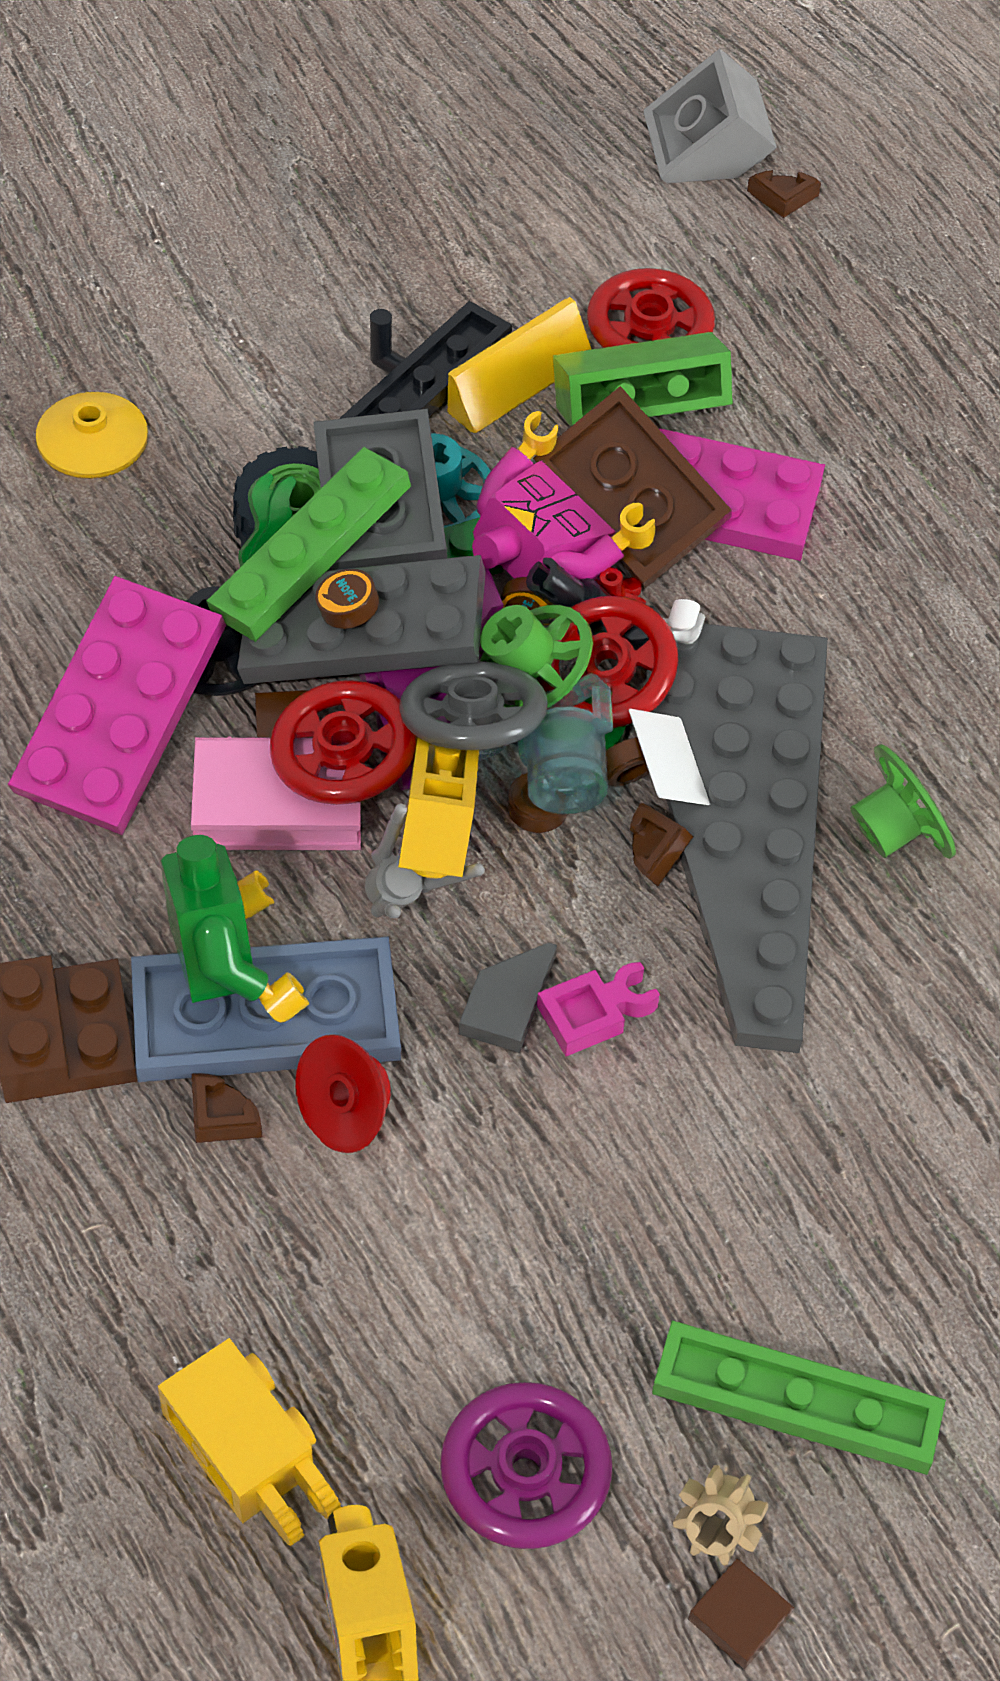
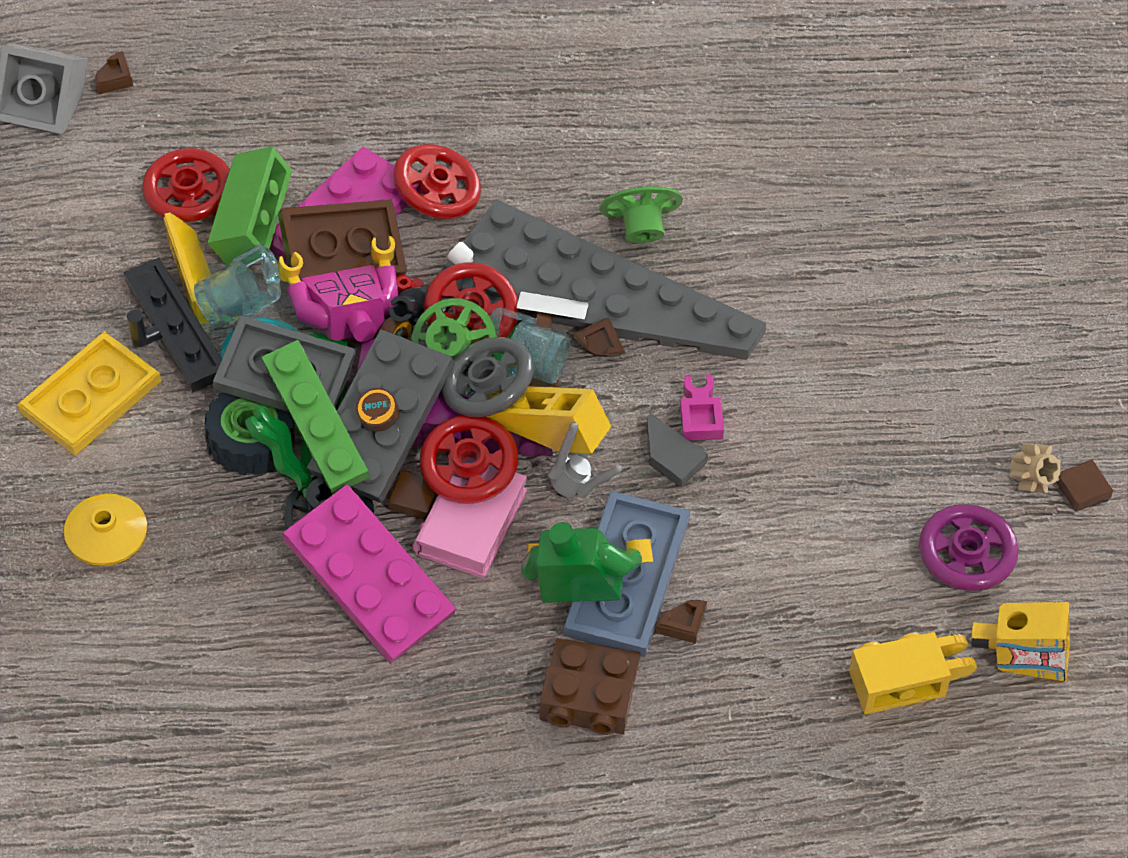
camera: 65 degrees left, 0 degrees up
(282, 345) = (89, 393): none -> yellow tile
(341, 1093) = (717, 561): red piece -> none
(488, 402) = (236, 290): none -> clear light blue piece
(799, 1397) = (978, 412): bright green plate -> none
(807, 604) = (437, 181): none -> red plate

